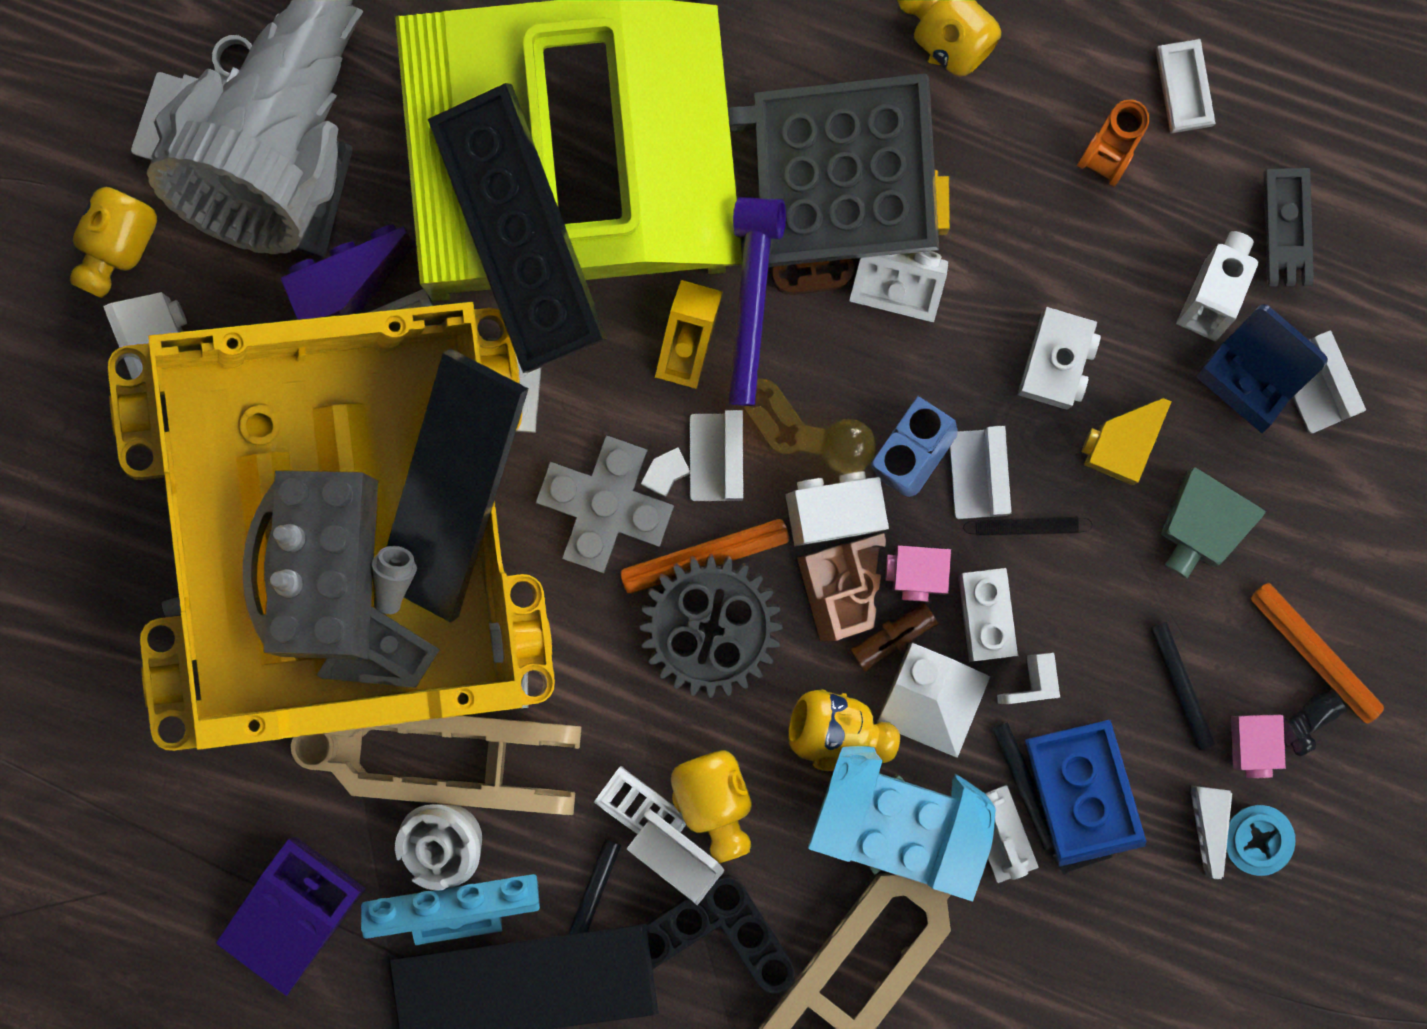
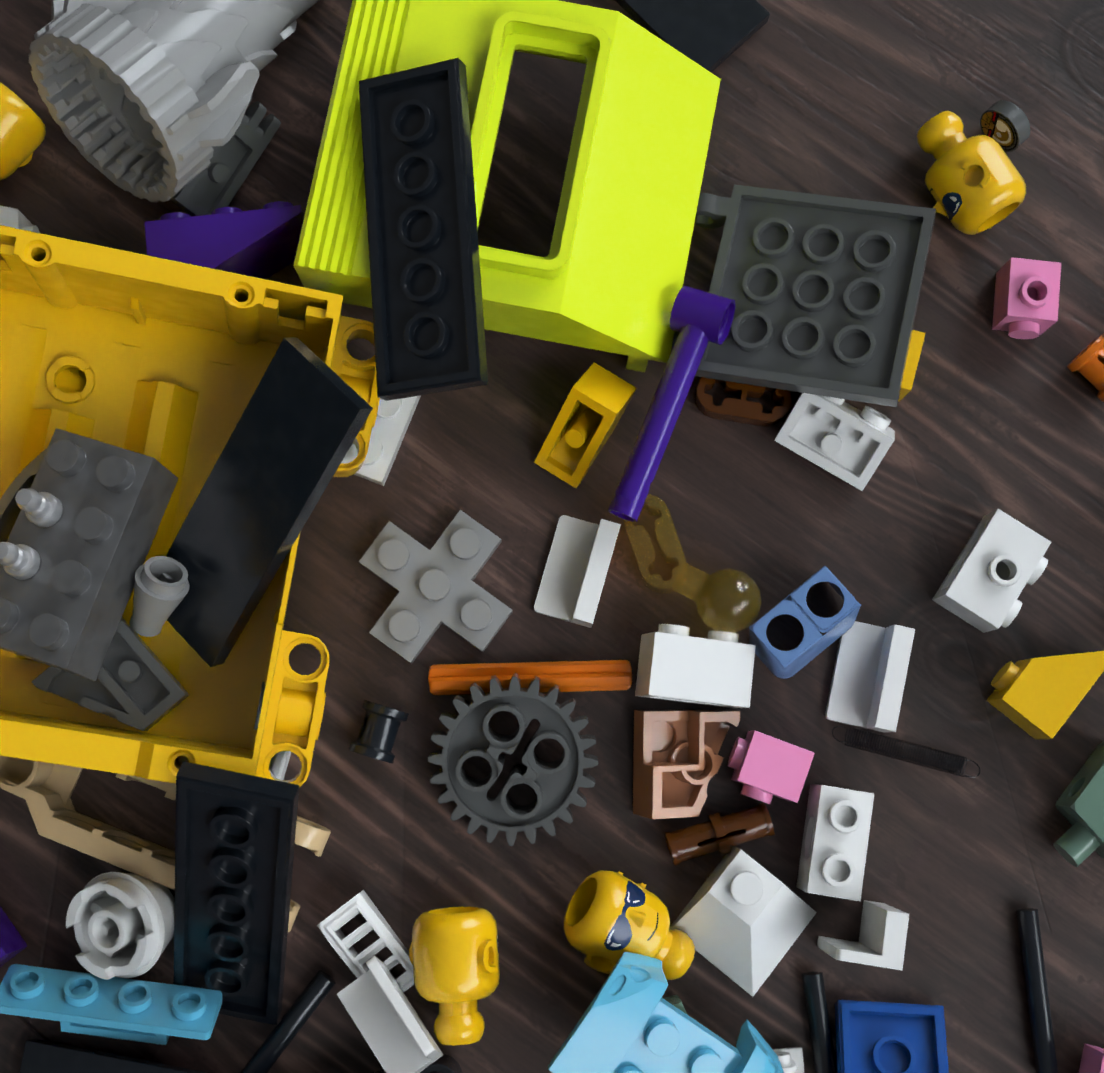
camera: 15 degrees right, 5 degrees down
(527, 787) = (233, 887): none -> black tile
(595, 635) = (378, 732): none -> black bush
(665, 471) = (513, 569): white piece -> none
(1027, 117) = (1026, 297): none -> bright pink brick

